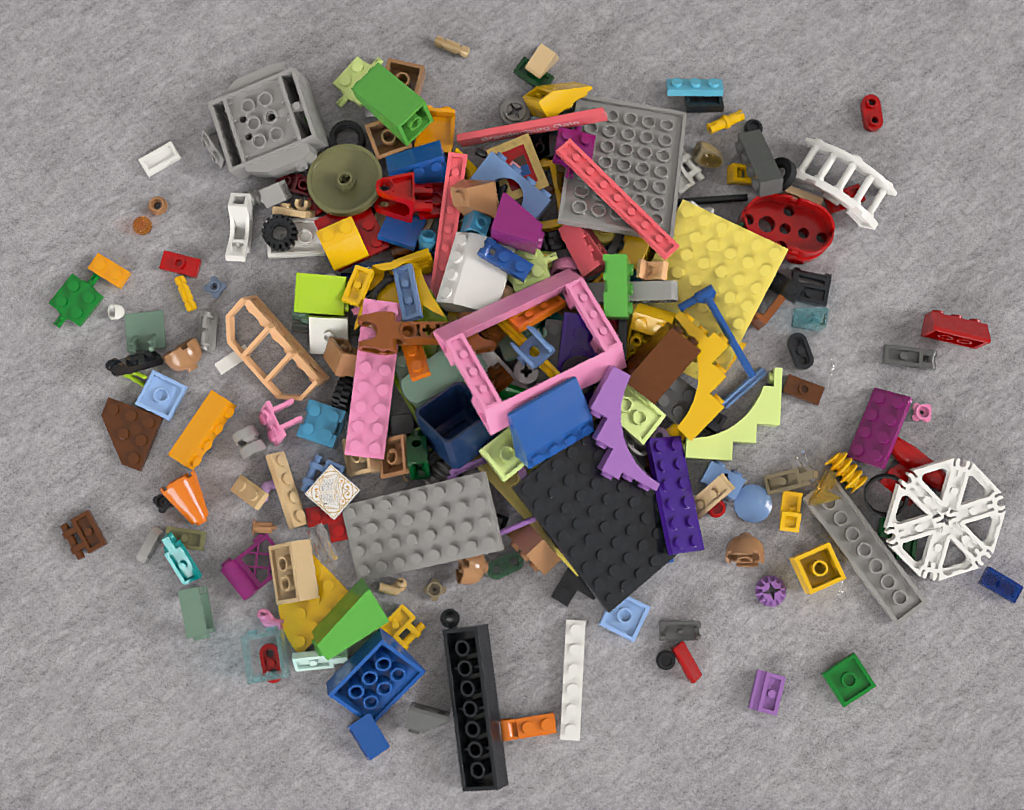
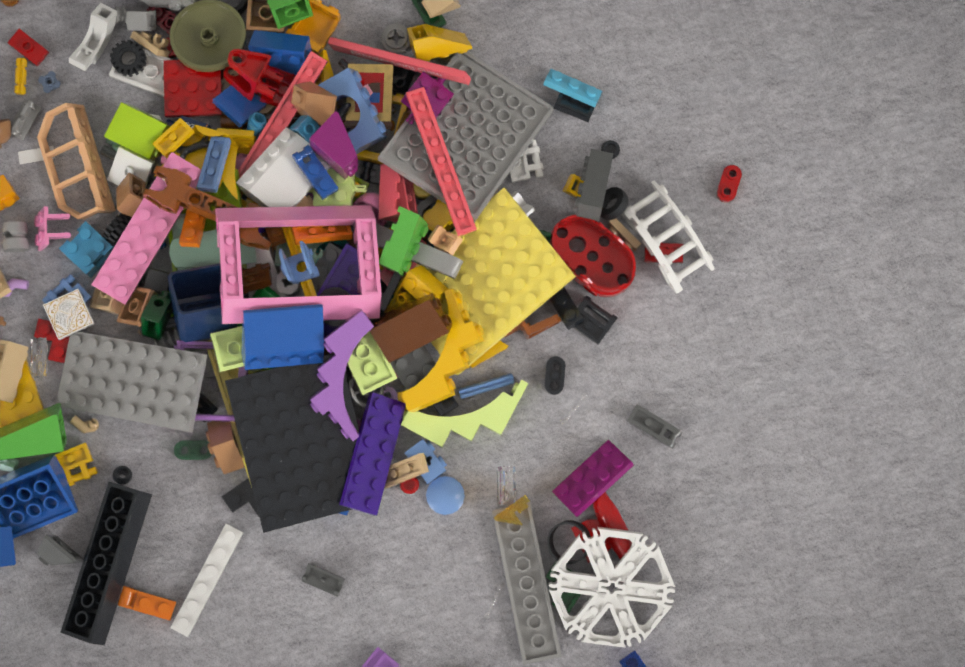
camera: 30 degrees right, 0 degrees up
(286, 490) = (29, 294): tan plate -> none
(342, 243) = (178, 93): yellow slope -> none
(434, 584) = (115, 440): dark tan plate -> none
(471, 570) = (161, 439): medium nougat cylinder -> none
(626, 618) = (281, 546): light blue tile -> none
(665, 660) = (298, 600): black plate -> none
(686, 662) = (317, 611): red slope -> none
(706, 296) = (483, 285): blue bar -> none
(707, 155) = (554, 157): dark tan rock -> none
(716, 199) = (540, 199): black bar -> none
(725, 121) = (586, 132): yellow pin -> none
(745, 550) = (416, 534): medium nougat cylinder -> none
(763, 585) = (429, 590): medium lavender gear -> none
(789, 480) = (485, 488): dark tan hinge -> none
(790, 511) = (476, 517): yellow slope -> none
(803, 389) = (541, 412): reddish brown plate -> none
(810, 318) = (577, 349): clear light blue slope -> none
(817, 568) = (474, 579): yellow brick -> none
(847, 471) = (544, 503): yellow piece -> none
(926, 416) = (647, 480): bright pink plate -> none
(955, 330) = (707, 418): red slope -> none

